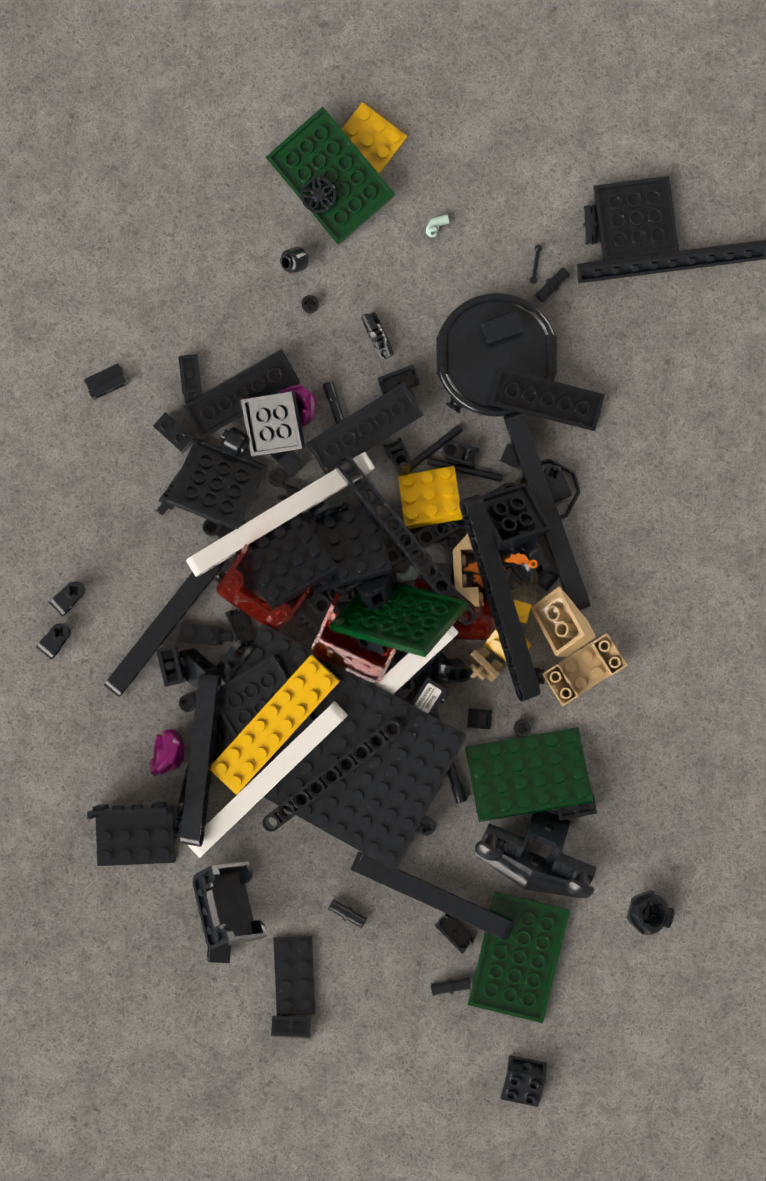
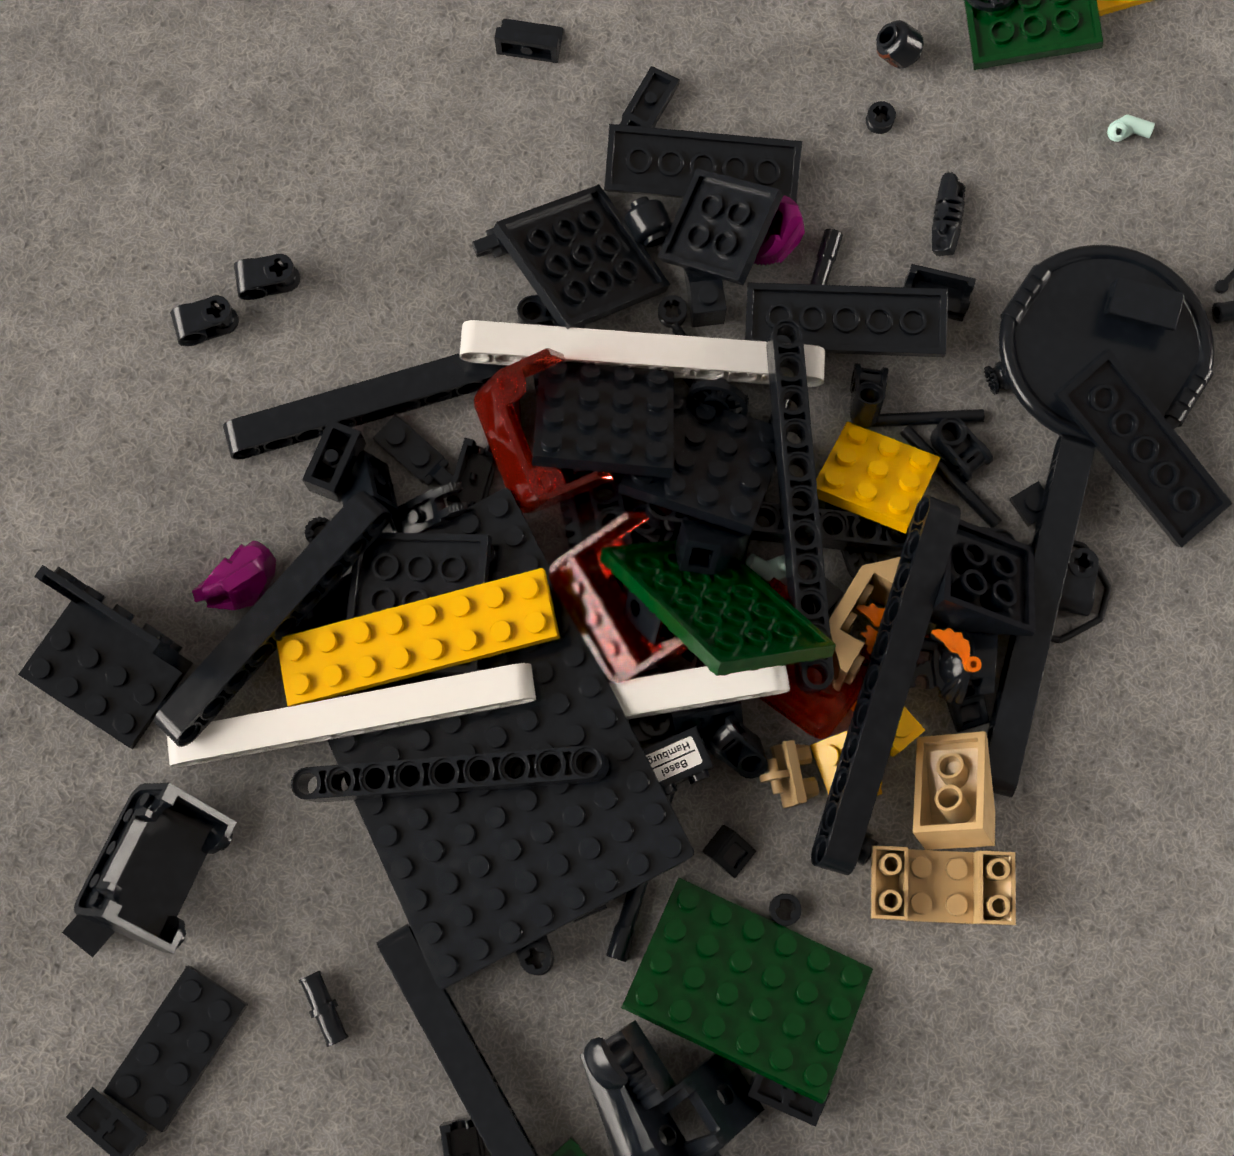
camera: 35 degrees right, 10 degrees down
(174, 432) = (572, 155): black brick -> none

